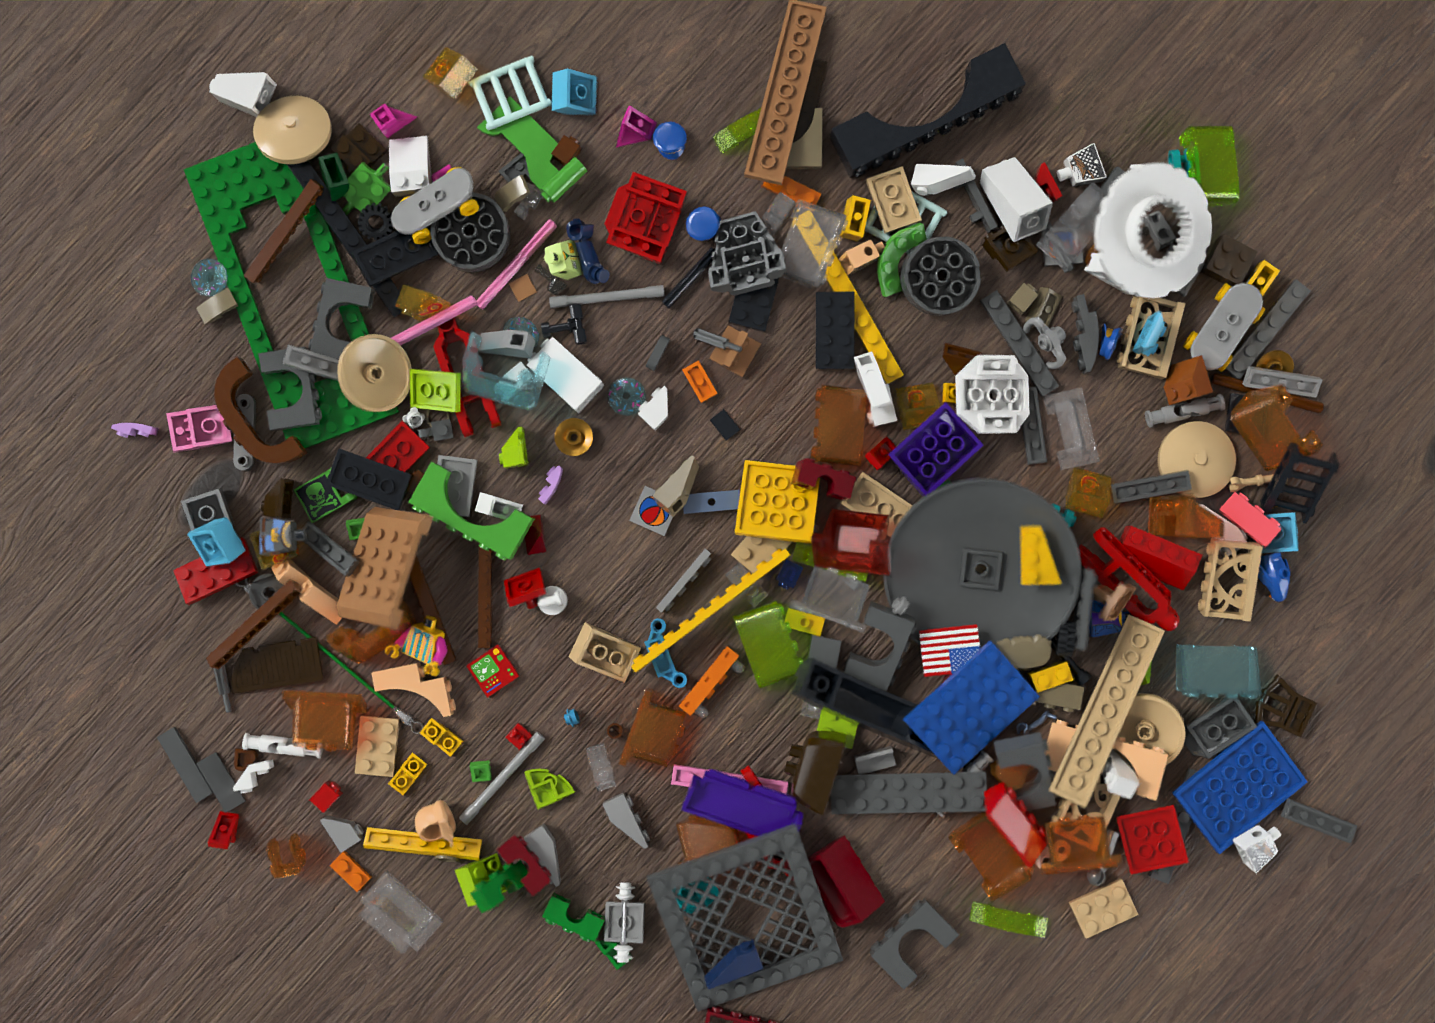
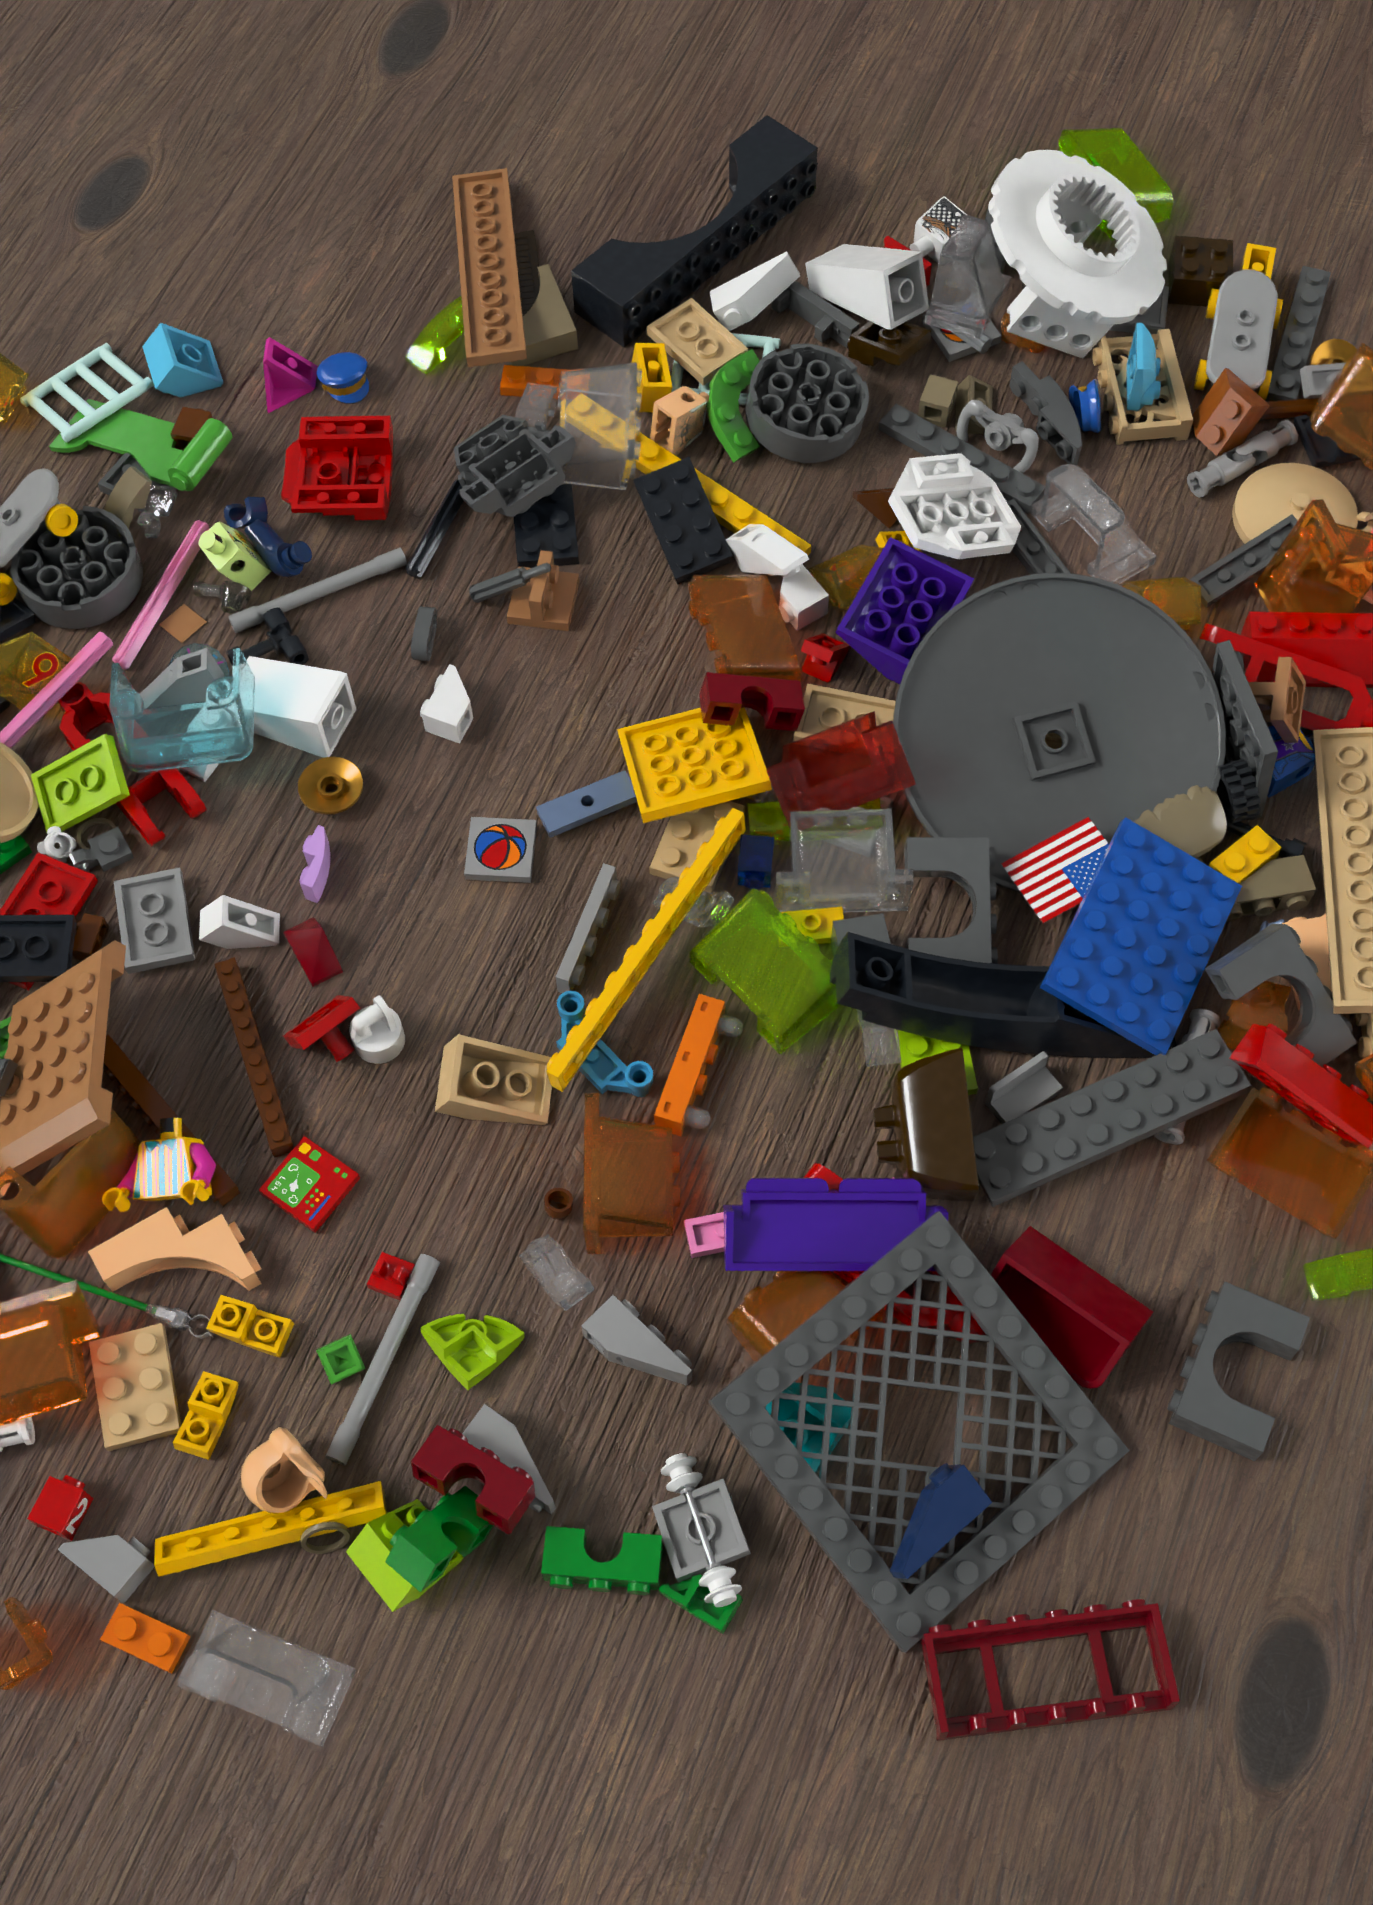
camera: 20 degrees left, 25 degrees down
(433, 498) = (253, 956): bright green arch -> none
(514, 450) = (240, 836): lime slope -> none
(572, 717) = (475, 1209): dark azure plate -> none
(626, 406) = (395, 721): clear light blue dish -> none
(676, 489) = (523, 797): slope -> none
(699, 381) = (504, 651): orange plate -> none
(702, 223) = (431, 455): blue piece -> none
(724, 424) = (566, 698): black piece -> none
(900, 605) = (953, 824): light grey plate -> none
(1036, 559) = (1131, 671): yellow wing -> none

